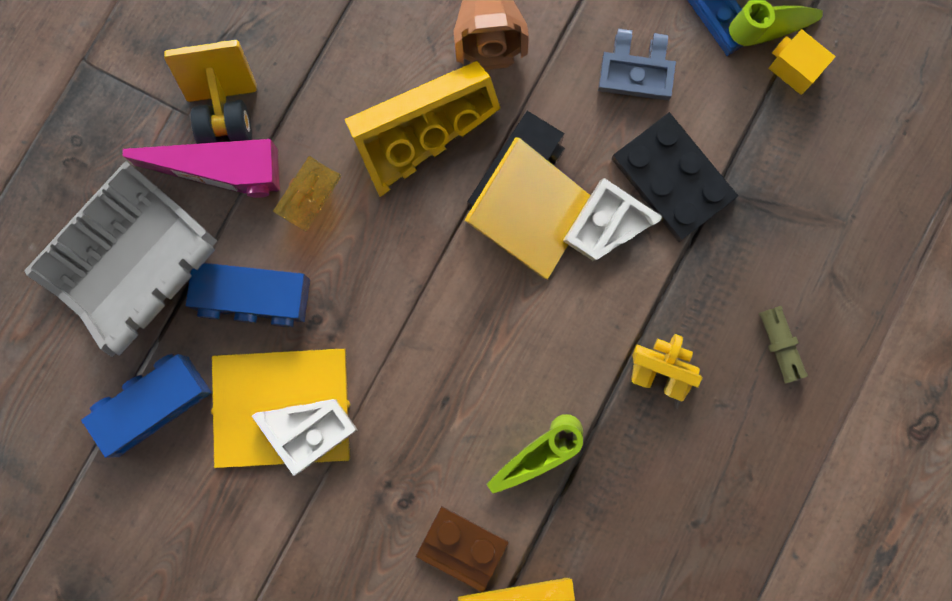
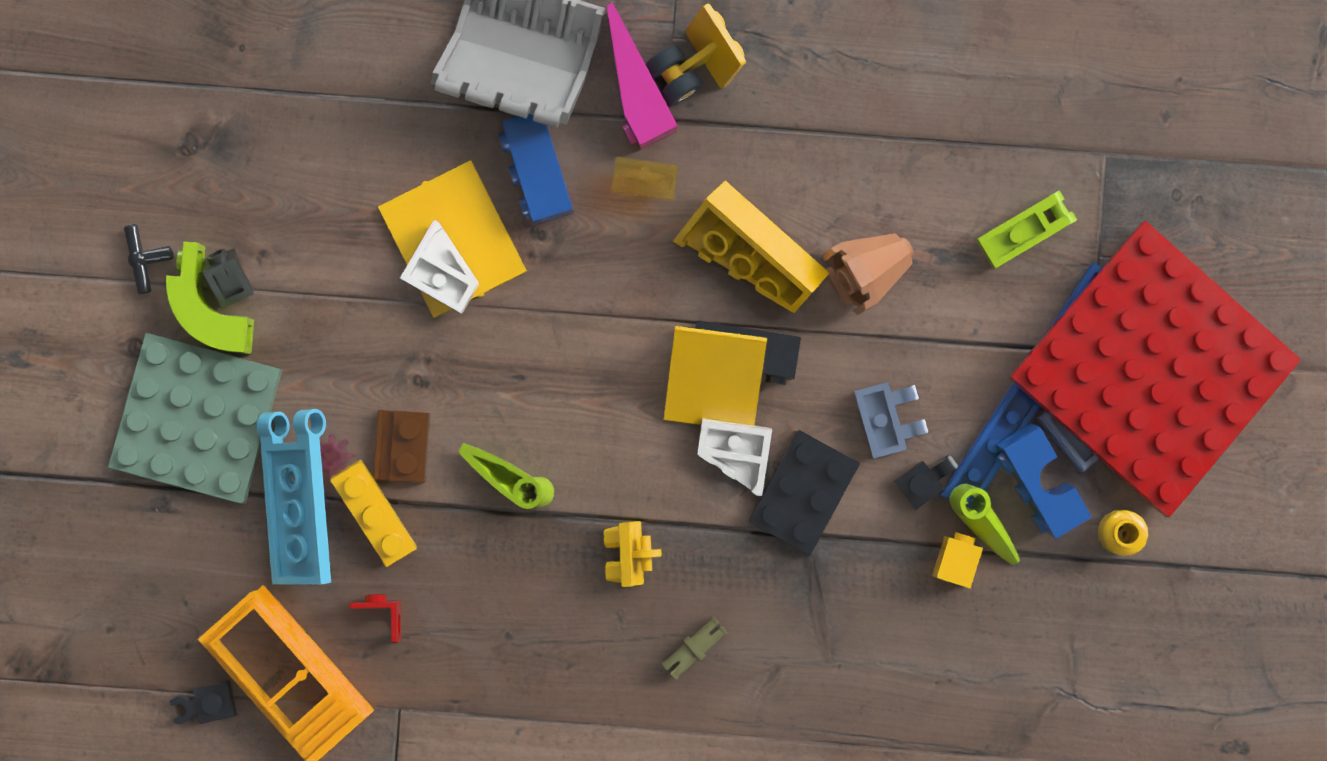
camera: 65 degrees right, 5 degrees up
(145, 405) = (405, 125): blue brick -> none
(710, 64) = (922, 483): none -> black plate

